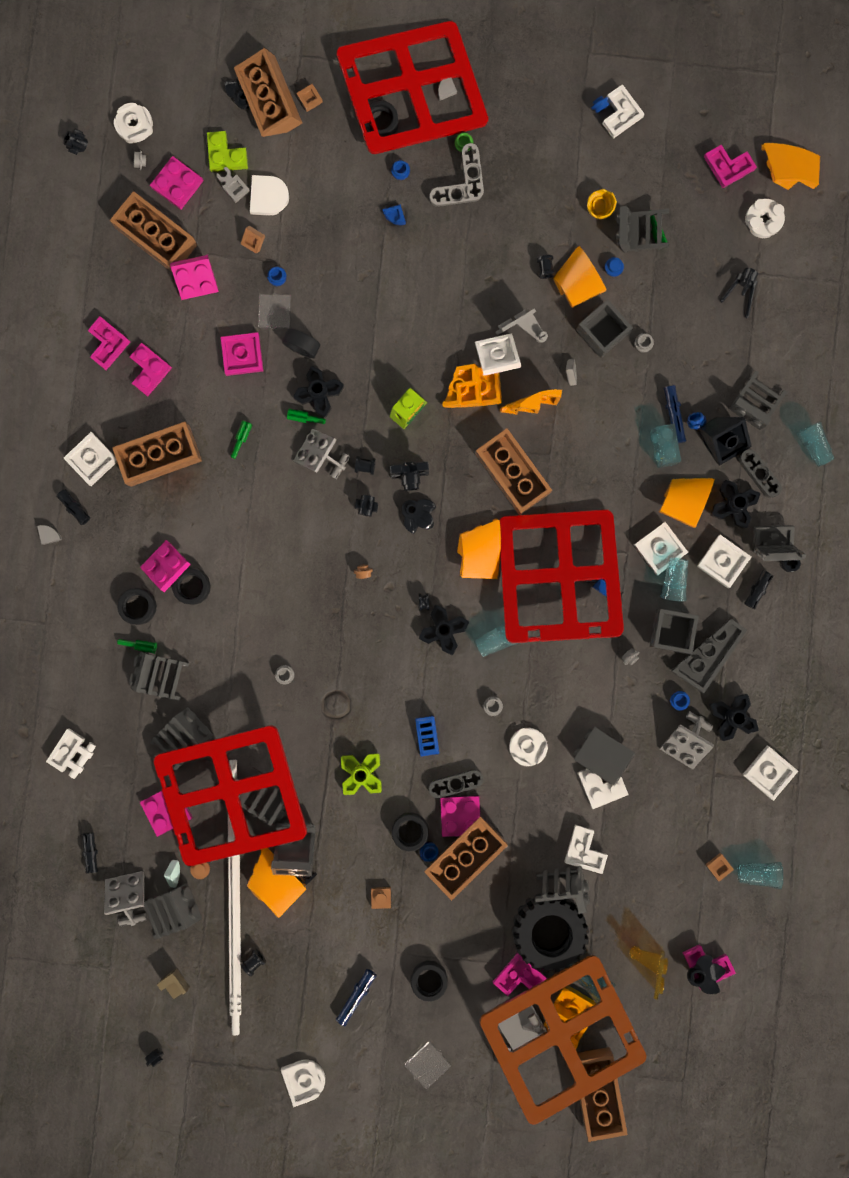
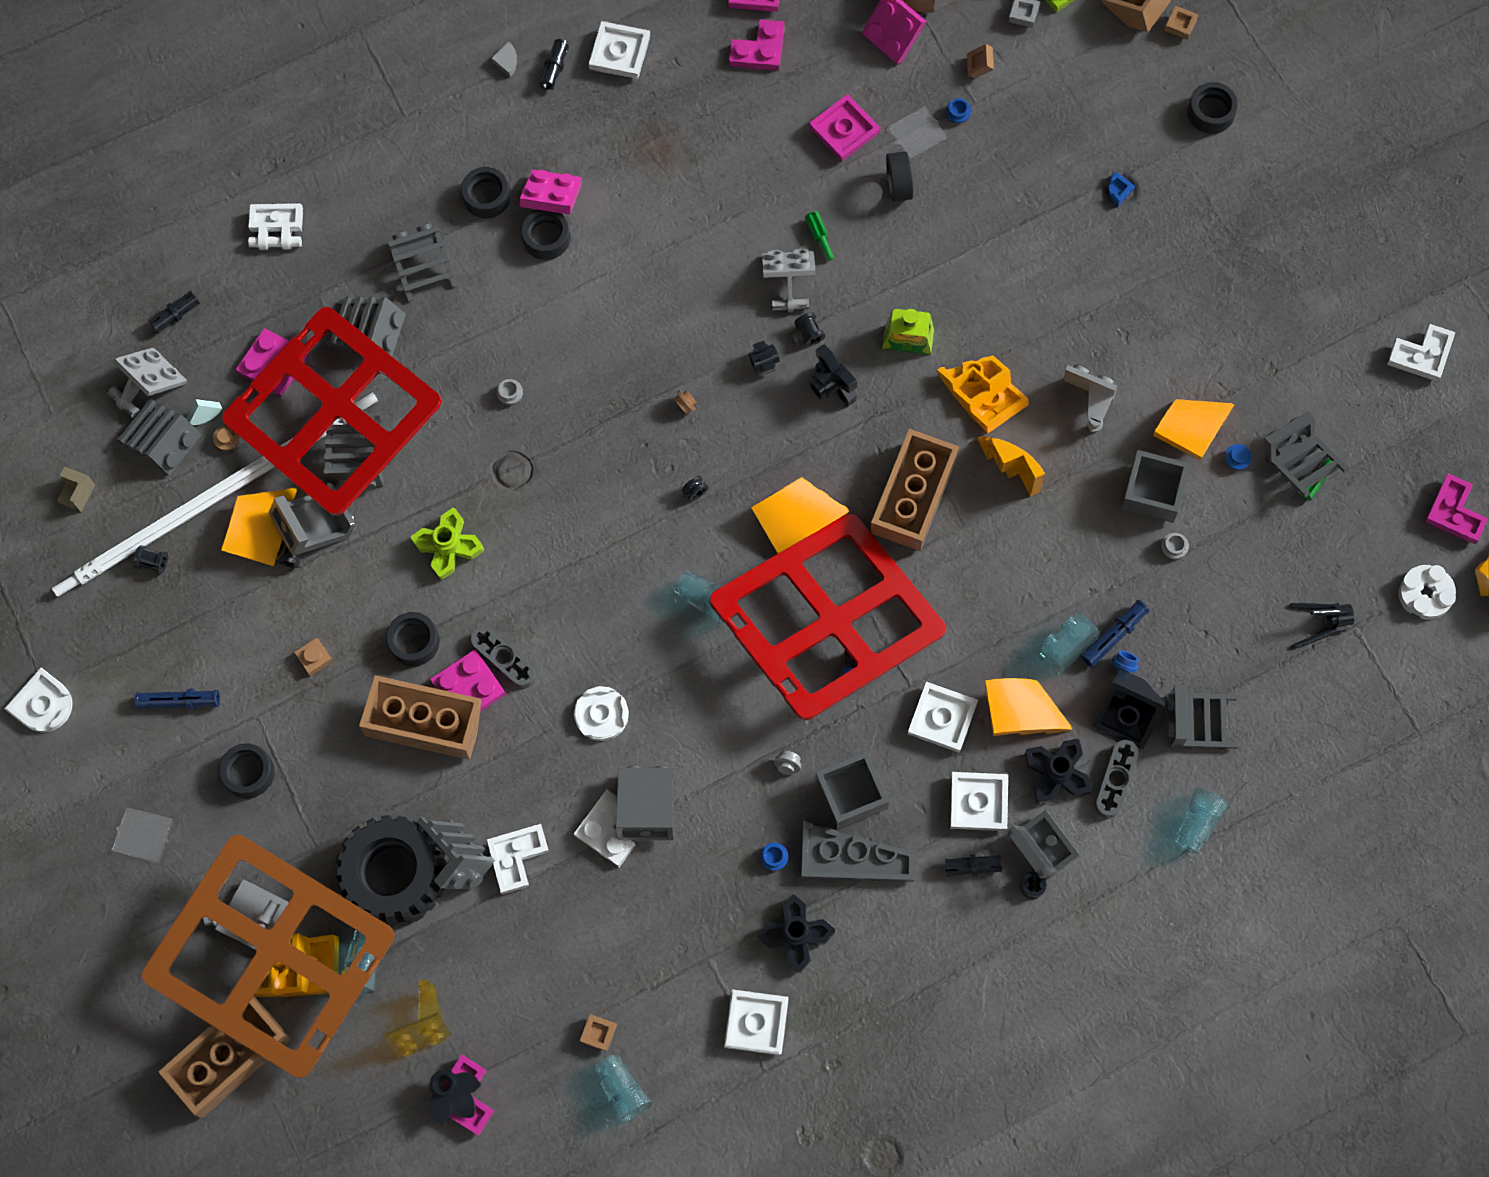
camera: 60 degrees right, 15 degrees down
(139, 645) = (444, 223): green axle -> none
(157, 454) = (670, 108): medium nougat brick -> none
(241, 436) = (751, 183): green axle -> none
(268, 195) = (1041, 48): white tile -> none
(308, 394) = (859, 229): black plant -> none
(400, 170) = (1174, 162): blue plate -> none
(411, 81) = (1279, 112): red window -> none
(420, 517) = (793, 424): black plate -> none
(421, 720) = (546, 596): blue slope -> none
(429, 852) = (403, 672): blue plate -> none
(446, 89) = (1303, 154): light grey tile -> none
(447, 640) = (677, 531): black plant -> none
(461, 140) = (1256, 208): bright green plate -> none
(464, 188) = (1205, 241): light grey beam -> none
(493, 706) = (623, 642): light grey plate -> none
(497, 354) = (1039, 390): white plate -> none
(516, 972) = (315, 863): dark pink plate -> none
(546, 266) = (1181, 381): black bush -> none
(571, 372) = (1080, 486): light grey tile -> none
(600, 104) = (1414, 324): blue plate -> none
(601, 204) = (1299, 395): yellow hair -> none
(675, 580) = (915, 753): clear light blue plant -> none
(687, 744) = (723, 895): light grey plate -> none

